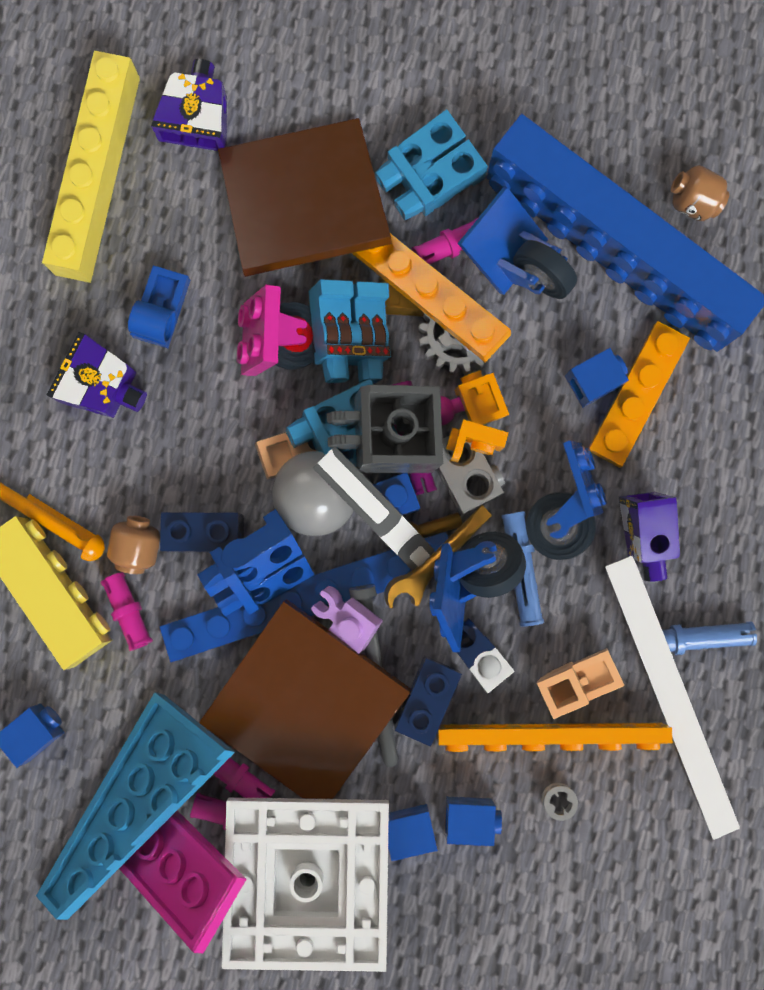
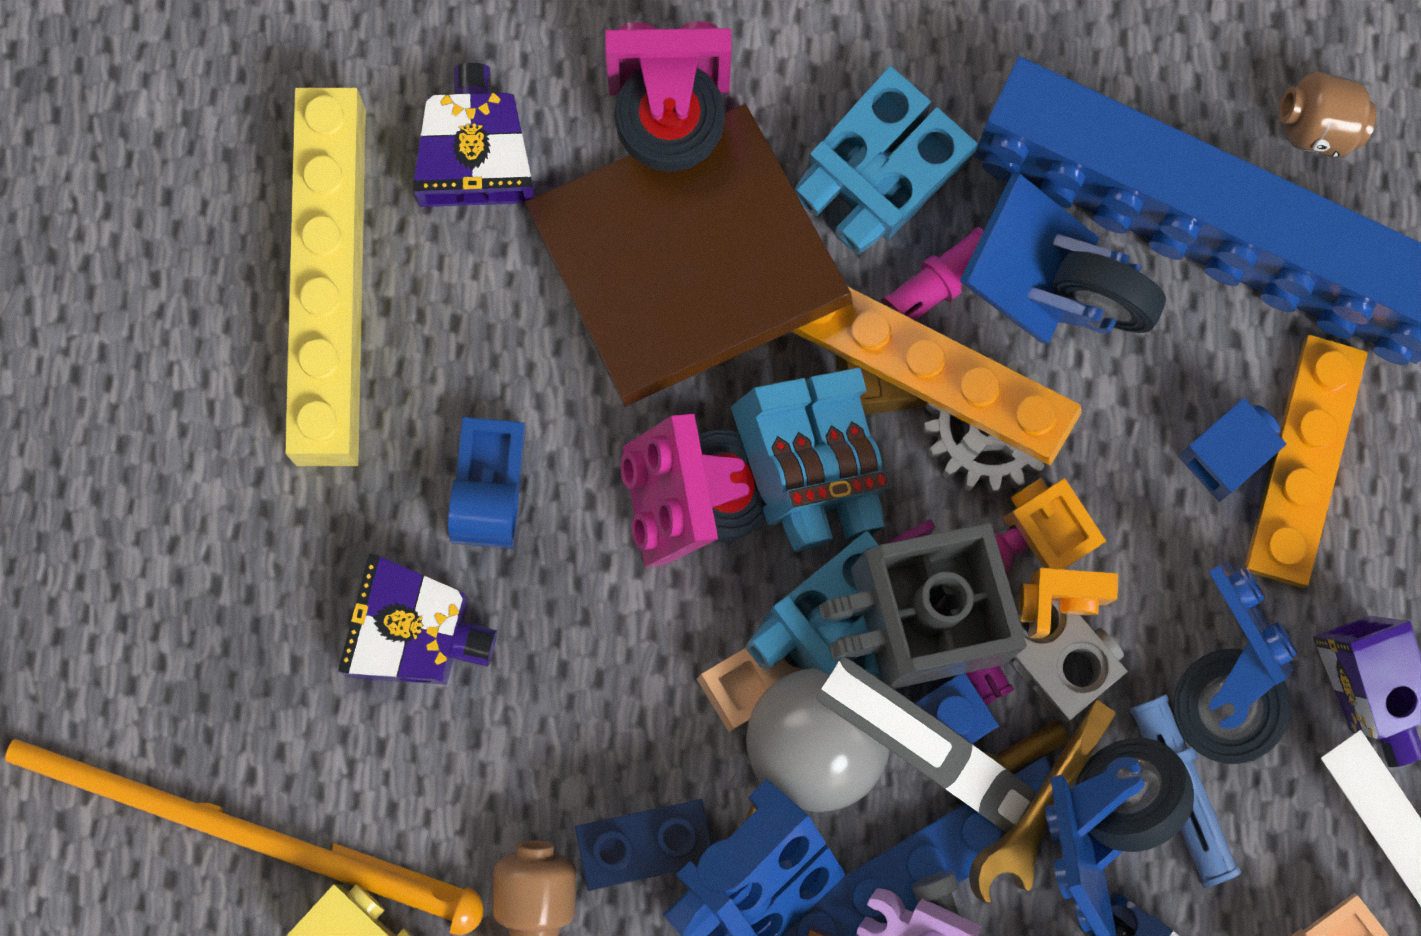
camera: 15 degrees left, 5 degrees down
(313, 95) = (669, 90): none -> plate

